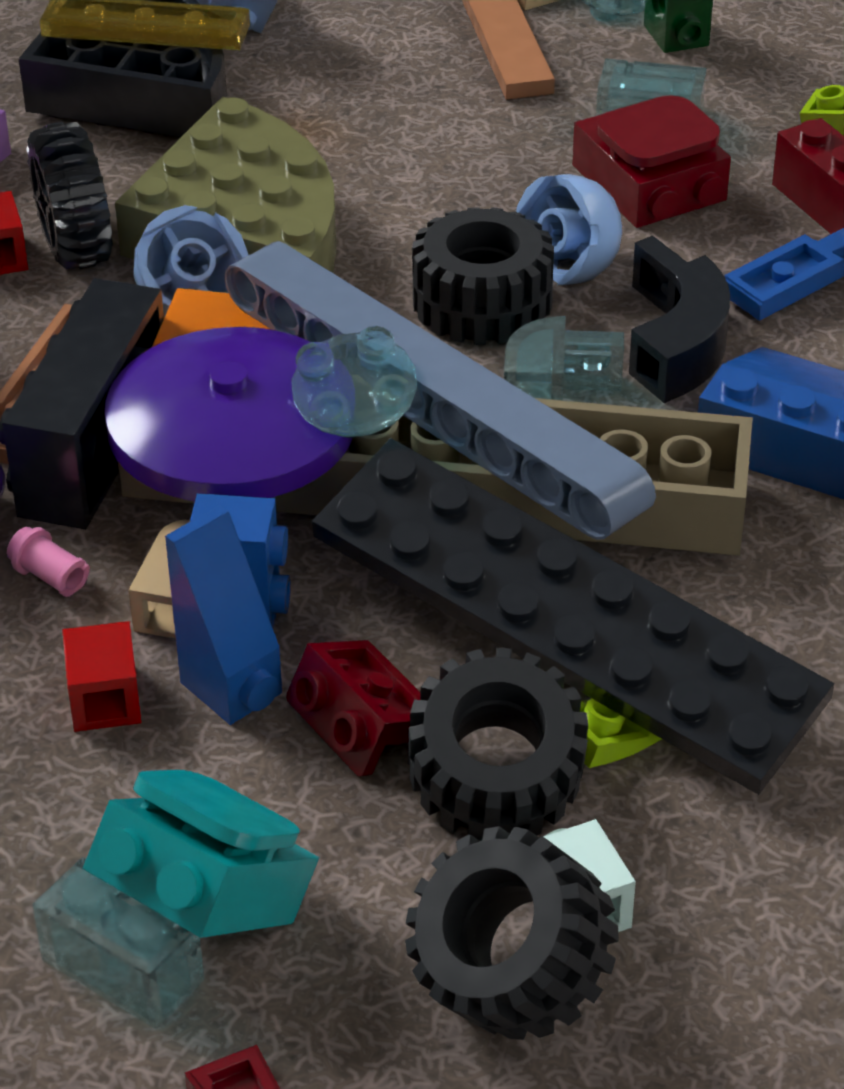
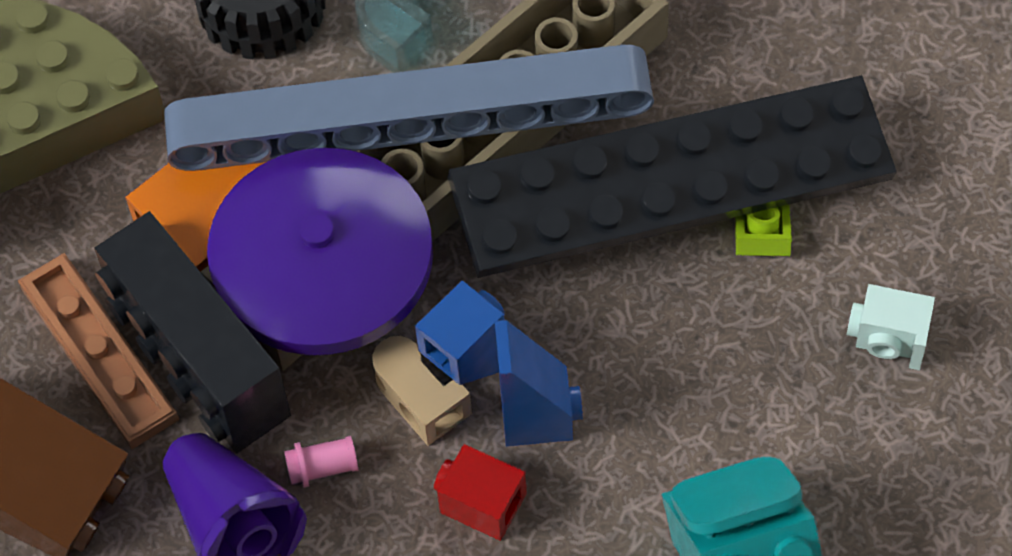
camera: 50 degrees left, 20 degrees up
(187, 252) = (82, 170): light blue cylinder -> none
(353, 700) = (633, 350): dark red bracket -> none
(354, 382) = (393, 156): clear light blue dish -> none
(469, 902) = (968, 426): black tyre -> none
(508, 696) = (793, 273): black tyre -> none

